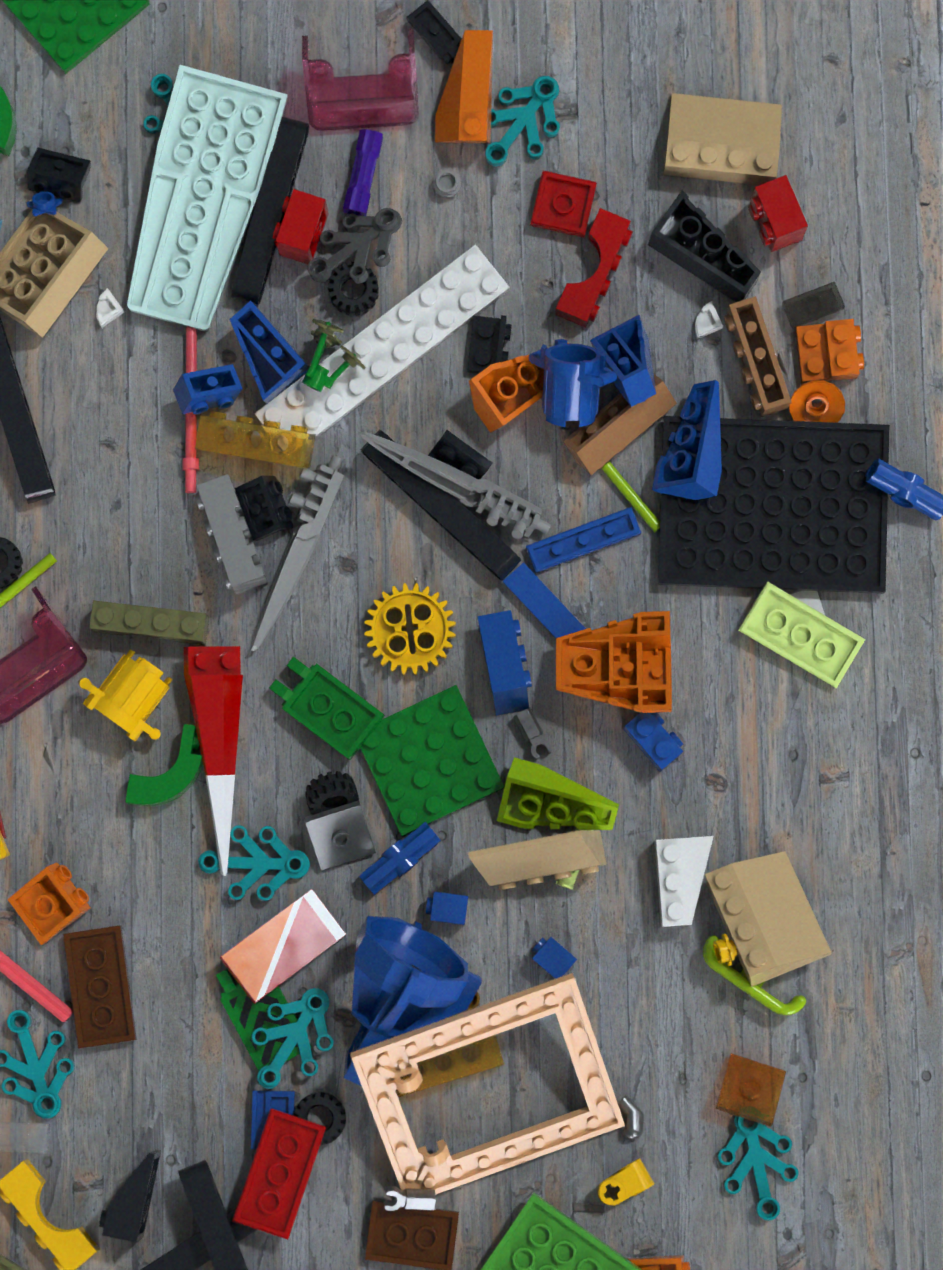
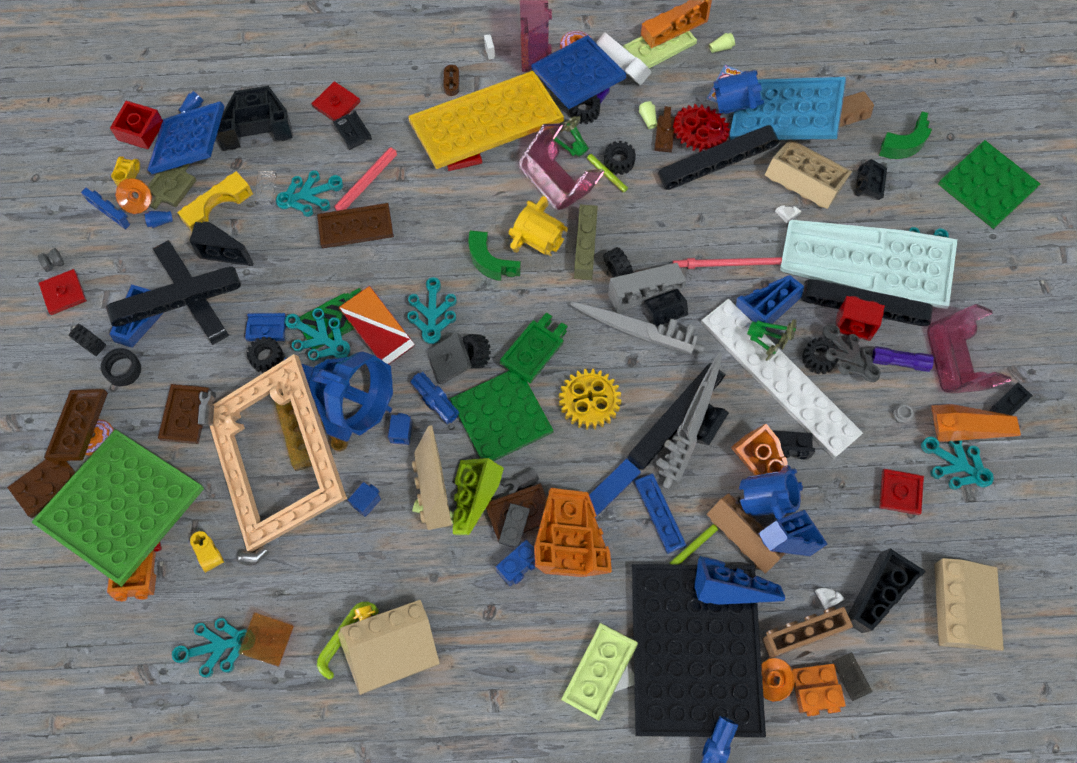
camera: 85 degrees right, 15 degrees down
(43, 203) = (851, 172): blue plate -> none
(50, 902) = (408, 195): orange plate -> none
(194, 574) = (617, 262): none -> black tyre
(207, 389) = (741, 266): blue brick -> none
(212, 439) = (709, 297): clear yellow brick -> none
(215, 699) = (543, 279): red plate -> none
(279, 1173) = (229, 327): red tile -> none
(505, 661) = (569, 458): blue wedge -> none
(578, 737) = (531, 498): none -> reddish brown plate
(580, 299) = (832, 505): red arch -> none
(601, 743) = (514, 526): none -> dark grey plate
(680, 877) = (419, 583): white wedge -> none
(777, 214) = (918, 643): red brick -> none

